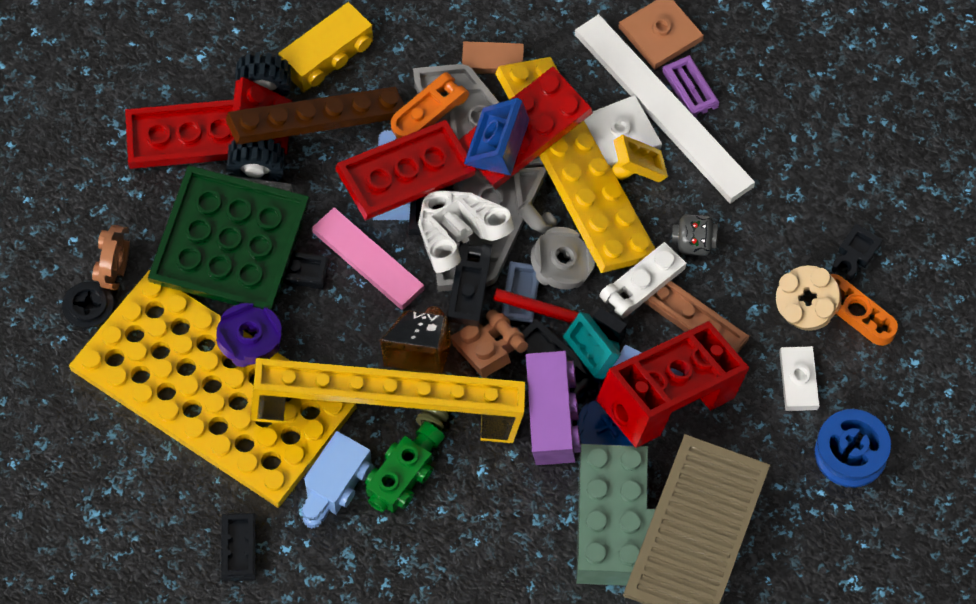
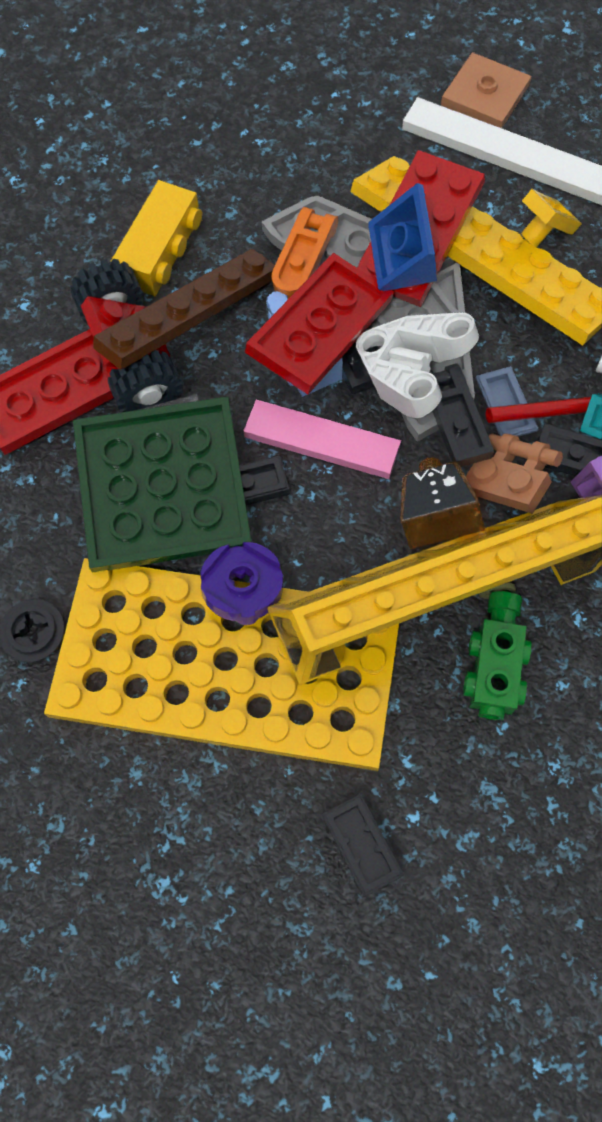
camera: 20 degrees left, 5 degrees up
(112, 258) = (35, 561): nougat plate -> none
(334, 477) = (428, 706): light blue hinge -> none
(488, 56) = (333, 180): nougat tile -> none
(534, 219) = (485, 320): light grey arm -> none
(553, 272) = (523, 363): light grey plate -> none
(619, 119) = (503, 196): white plate -> none
(712, 101) = (544, 133): medium lavender tile -> none

